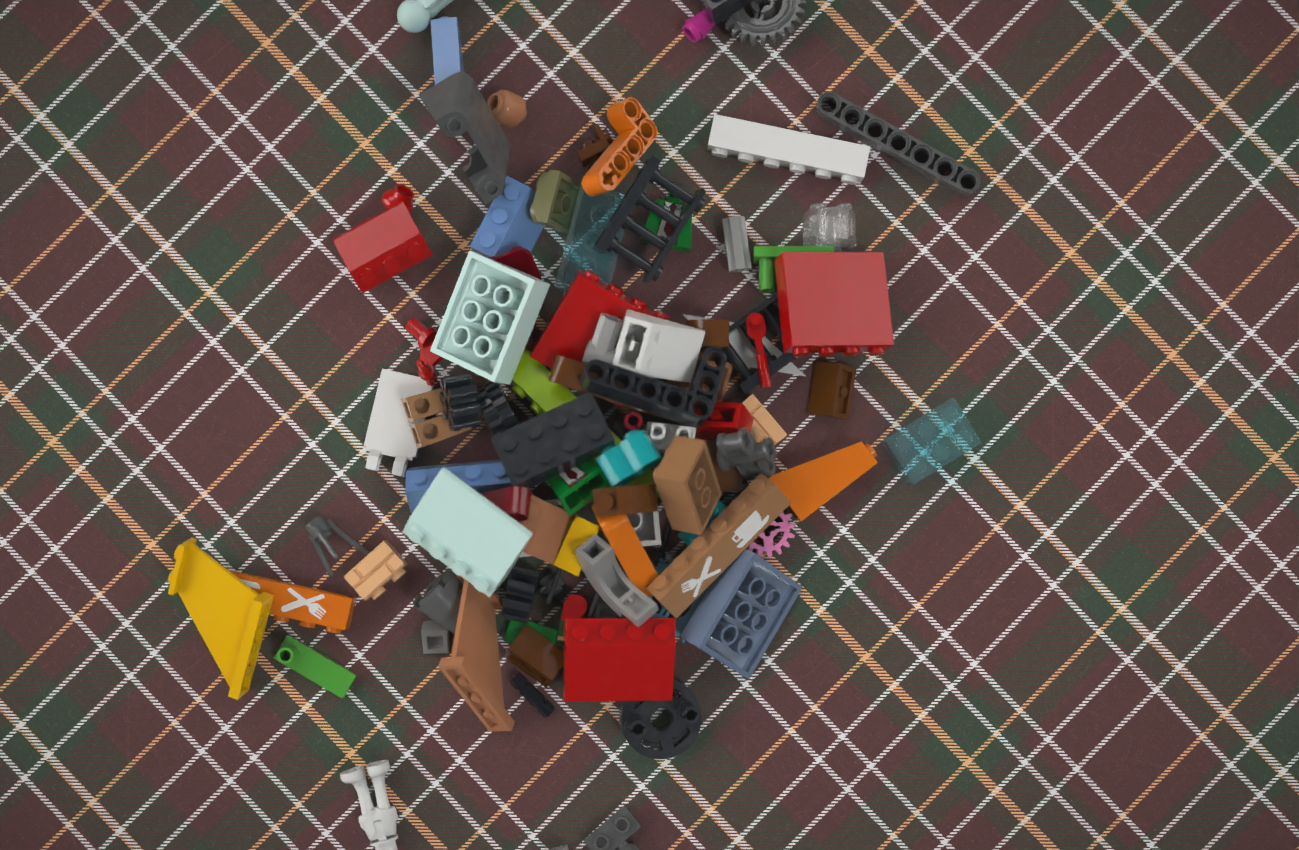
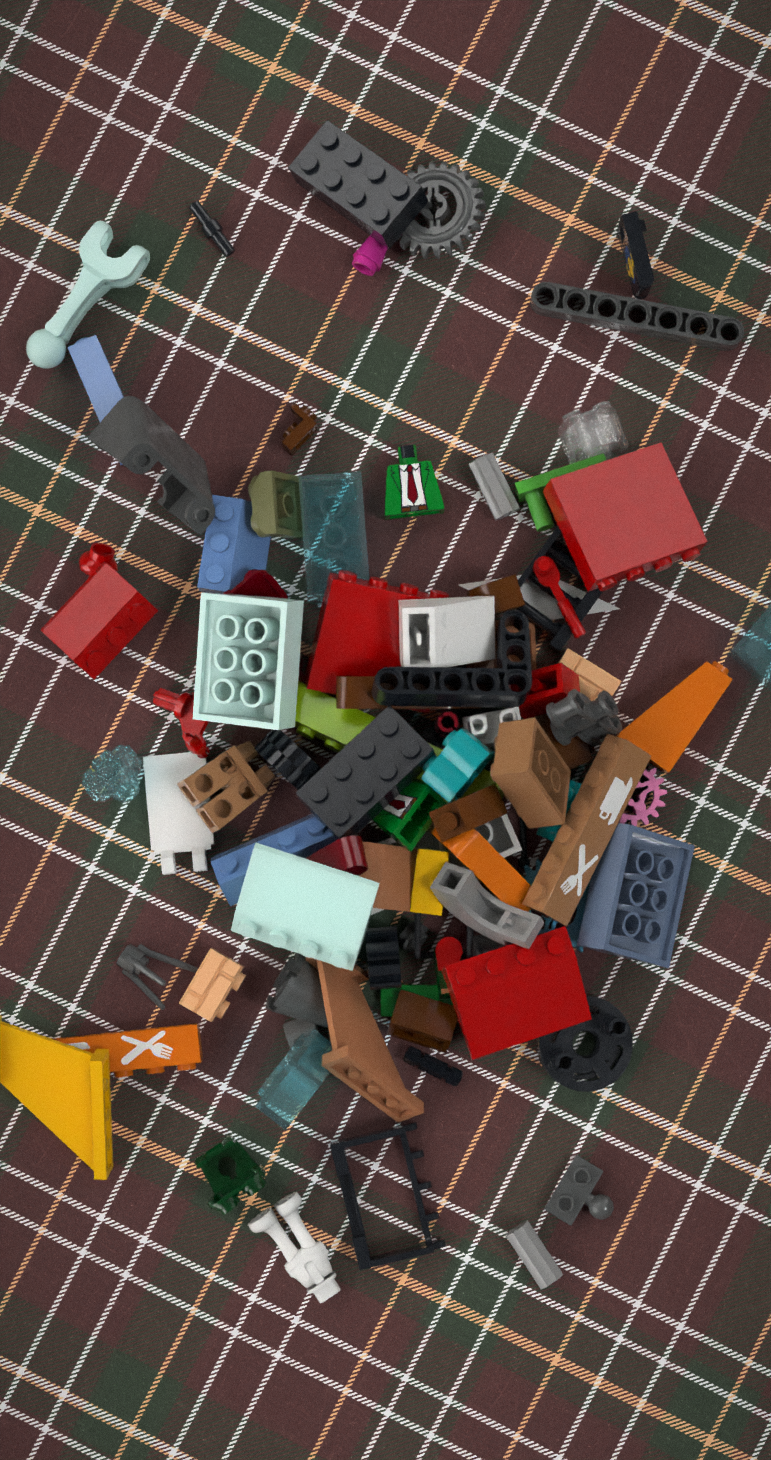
camera: 15 degrees left, 0 degrees up
(315, 666) = (179, 1114): bright green piece -> none
(332, 738) = (225, 1189): none -> dark green piece
(353, 376) = (113, 775): none -> clear light blue plant
(413, 670) = (294, 1079): none -> clear light blue brick
(426, 816) = (359, 1237): none -> black hinge
(460, 402) = (246, 764): black gear -> none
(507, 108) = (187, 418): nougat head -> none
(603, 339) = (383, 643): light grey piece -> none
(622, 218) = (359, 501): black fence -> none
(635, 136) = (340, 406): orange beam -> none
(788, 148) = (515, 361): white brick -> none
(832, 390) = (654, 615): reddish brown panel -> none
(913, 93) = (635, 254): none -> black container

